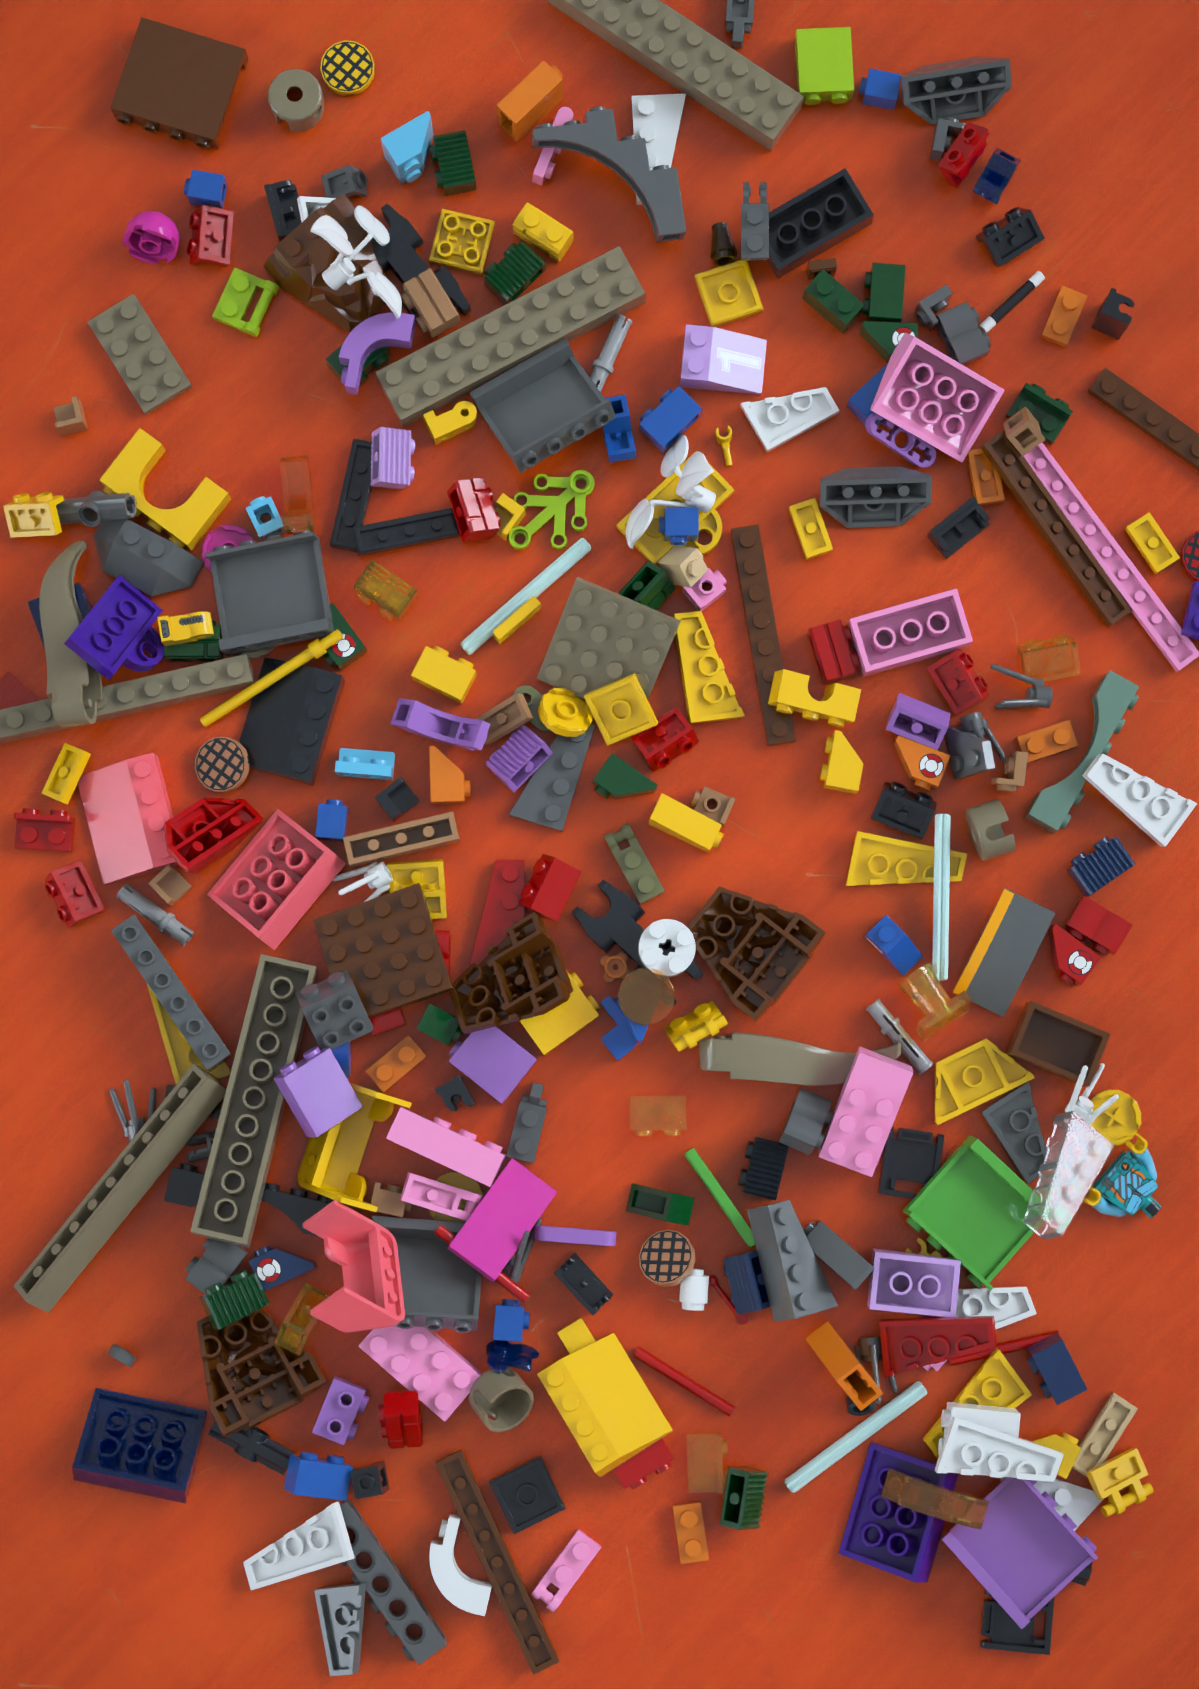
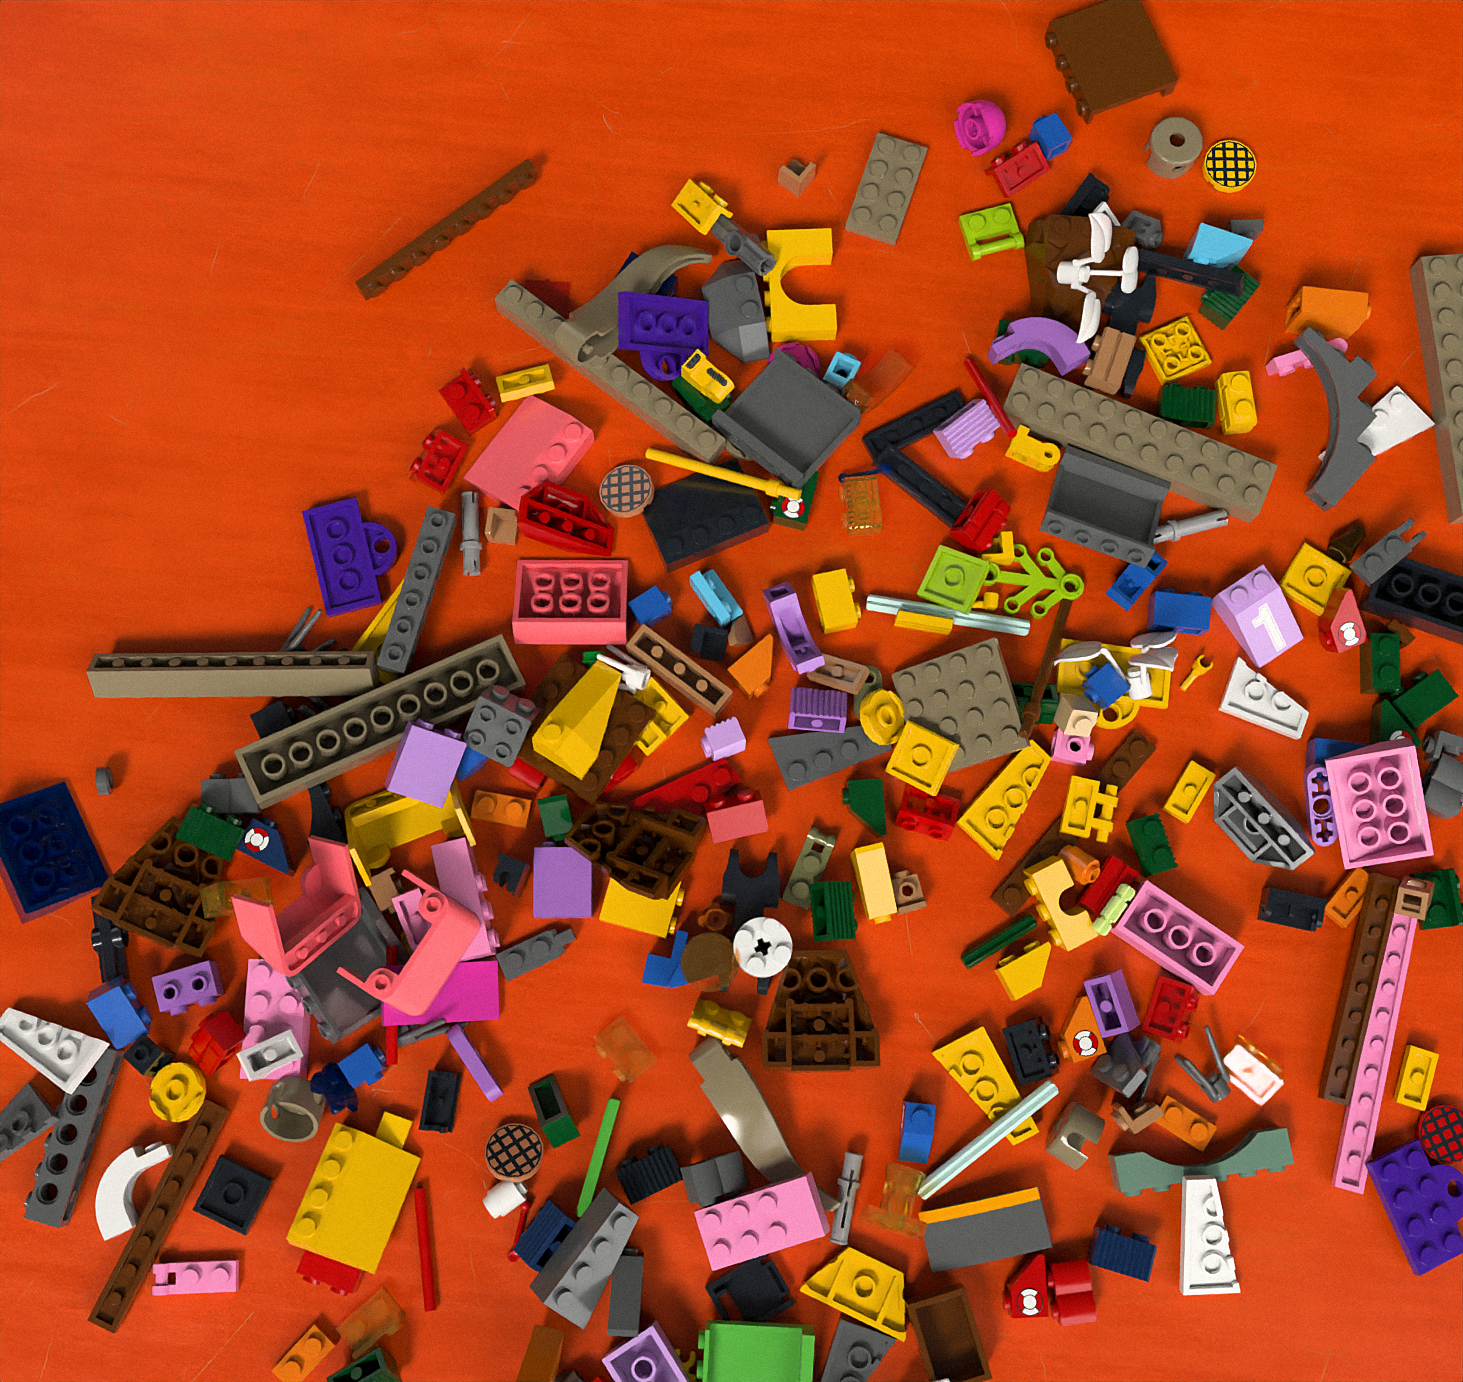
camera: 50 degrees right, 5 degrees down
(94, 1026) = (347, 556): none -> dark purple plate
(336, 900) = (590, 658): none -> green plate
(372, 549) = (884, 468): none -> clear blue hinge
(382, 419) = (990, 397): none -> red bar
(382, 950) = (577, 724): none -> yellow wedge
(408, 768) = (740, 632): none -> medium nougat tile
(410, 105) = (1246, 228): none -> dark grey bracket
(411, 178) = (1191, 272): none -> black tile
(415, 1479) = (177, 1092): none -> yellow tile
(448, 1382) = (269, 1055): none -> white slope
(477, 1201) = (433, 959): none -> coral windscreen
(483, 849) = (723, 740): none -> lavender brick
(503, 569) = (954, 579): none -> lime plate
(542, 555) = (989, 602): none -> yellow hand
(653, 596) = (1032, 709): none -> reddish brown bar
(681, 873) = (833, 911): none -> dark green brick
(755, 620) = (1080, 808): none -> yellow plate
(779, 303) = (1341, 622): none -> slope
(797, 658) = (1080, 864): none -> orange brick
(804, 766) = (998, 941): none -> dark green axle
(827, 592) = (1151, 845): none -> dark green brick
(851, 661) = (1113, 909): none -> yellowish green axle

